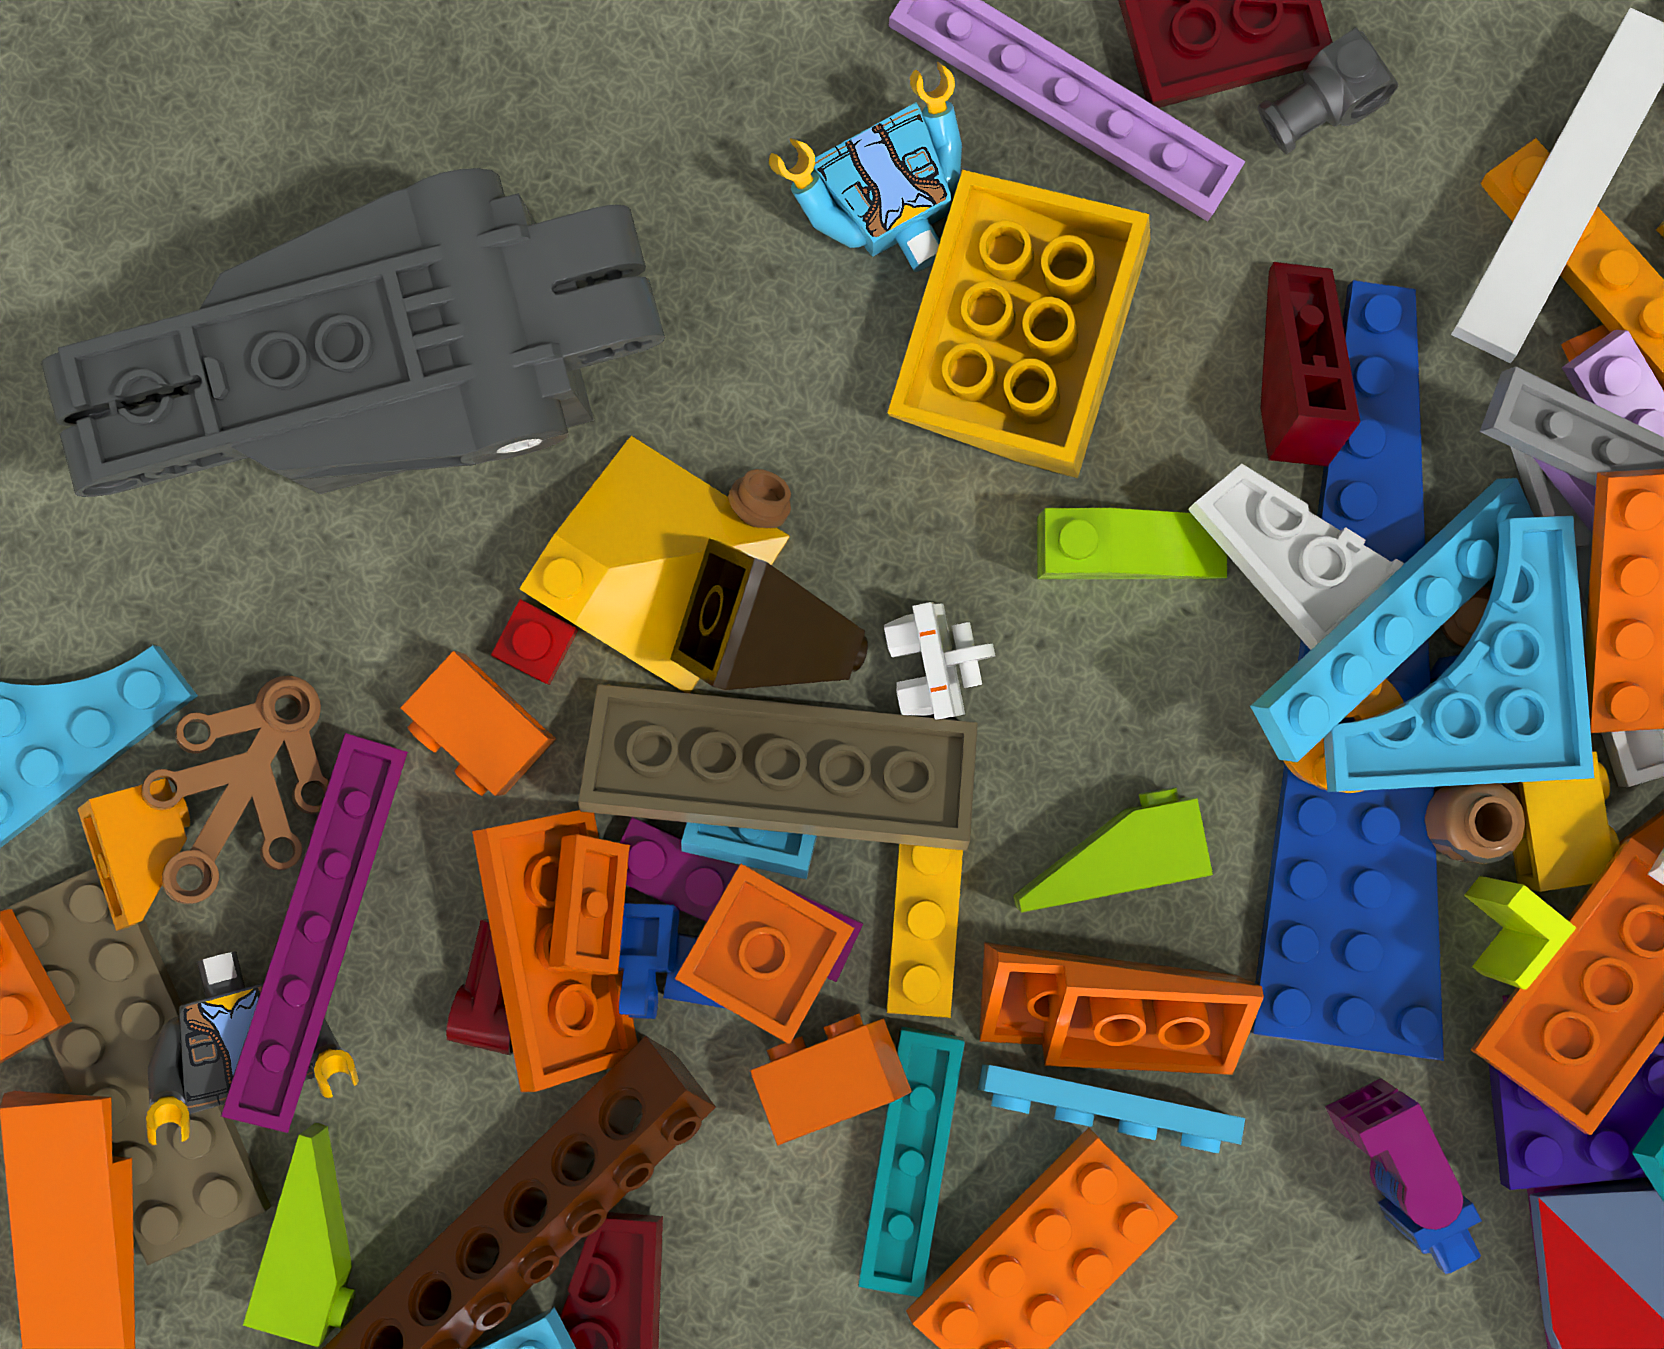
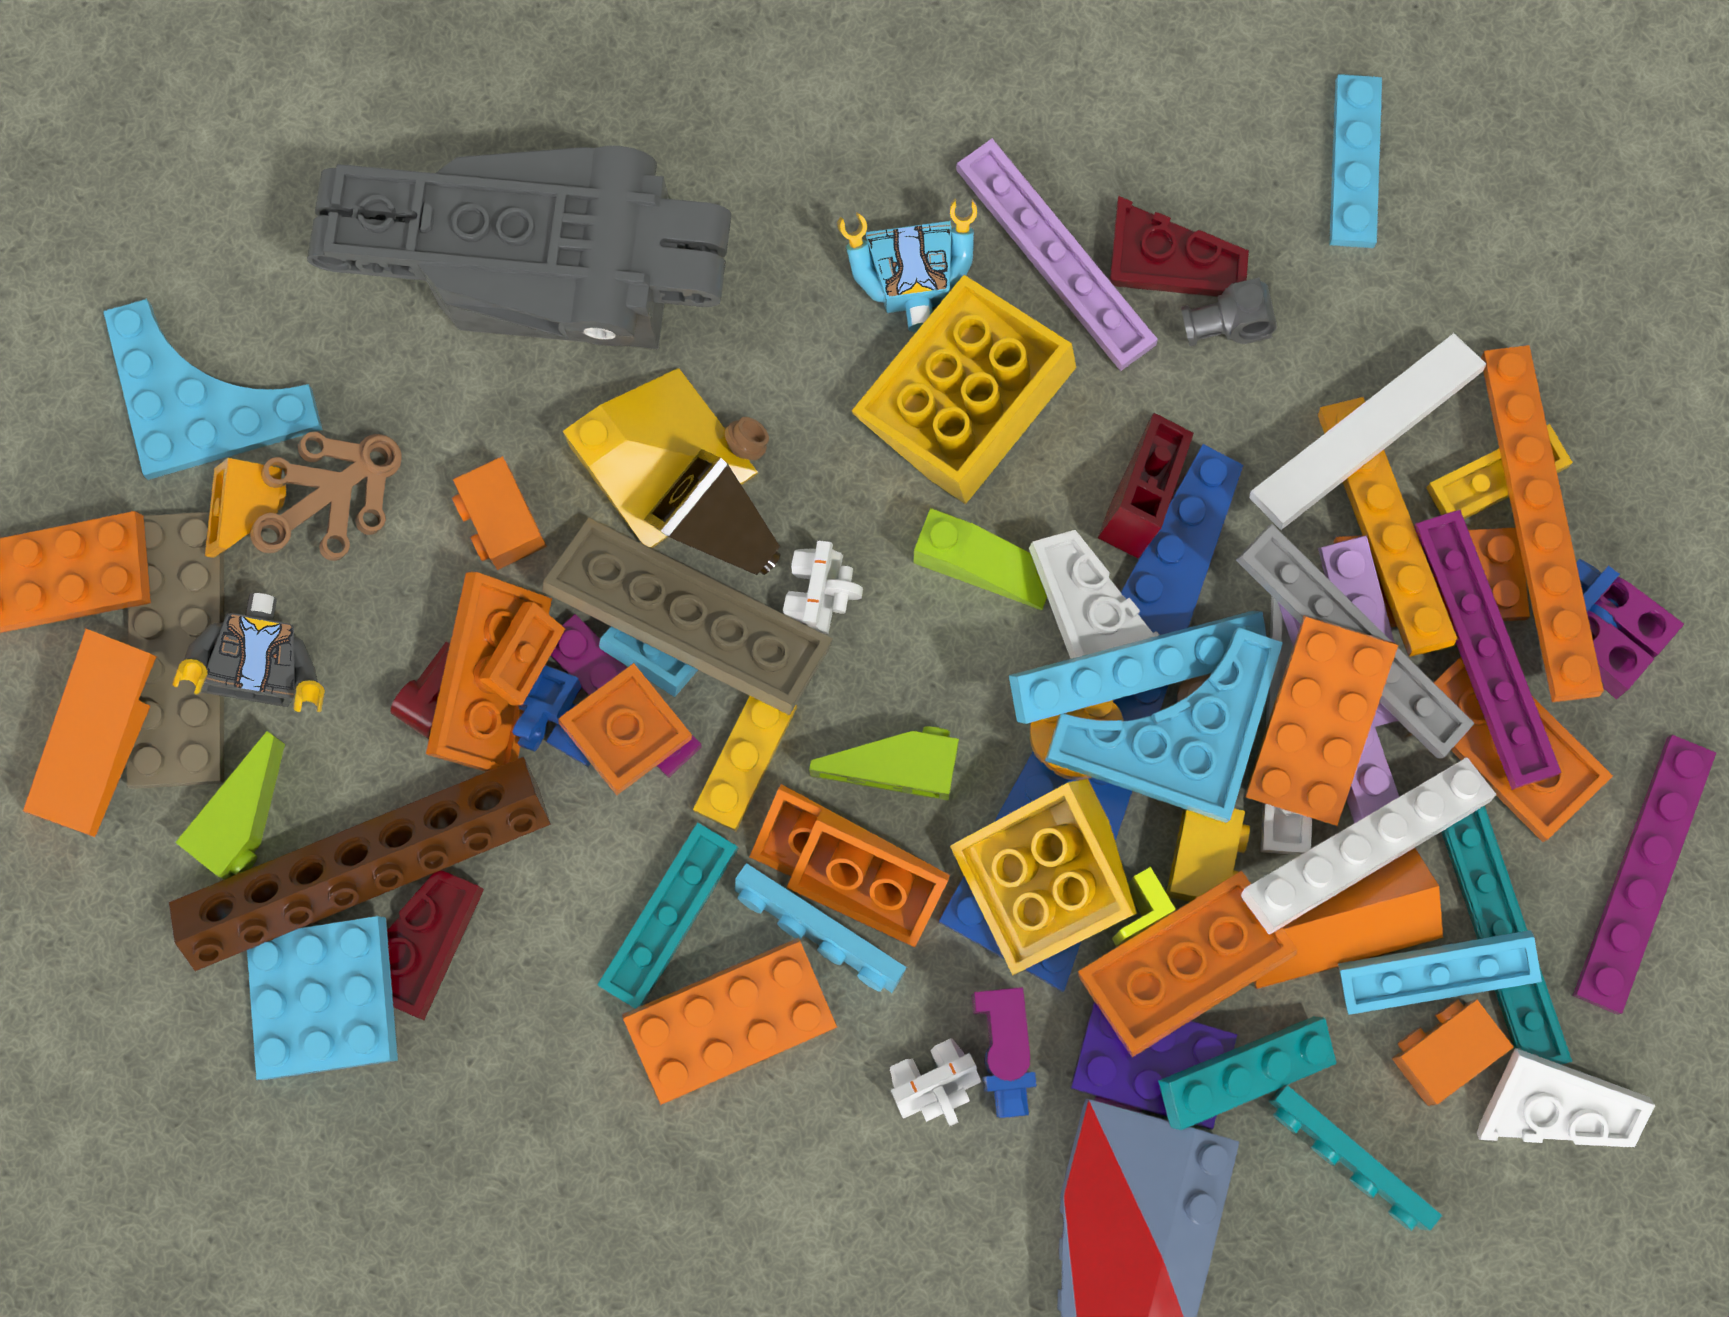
camera: 25 degrees right, 10 degrees down
(314, 935) = (334, 603): magenta plate -> none
(534, 642) = (559, 476): red plate -> none
(830, 1080) = (635, 833): orange brick -> none
(1306, 1261) = (937, 1090): none -> white hips
(1383, 933) = (1047, 875): none -> yellow slope
(1475, 822) = (1154, 817): medium nougat head -> none

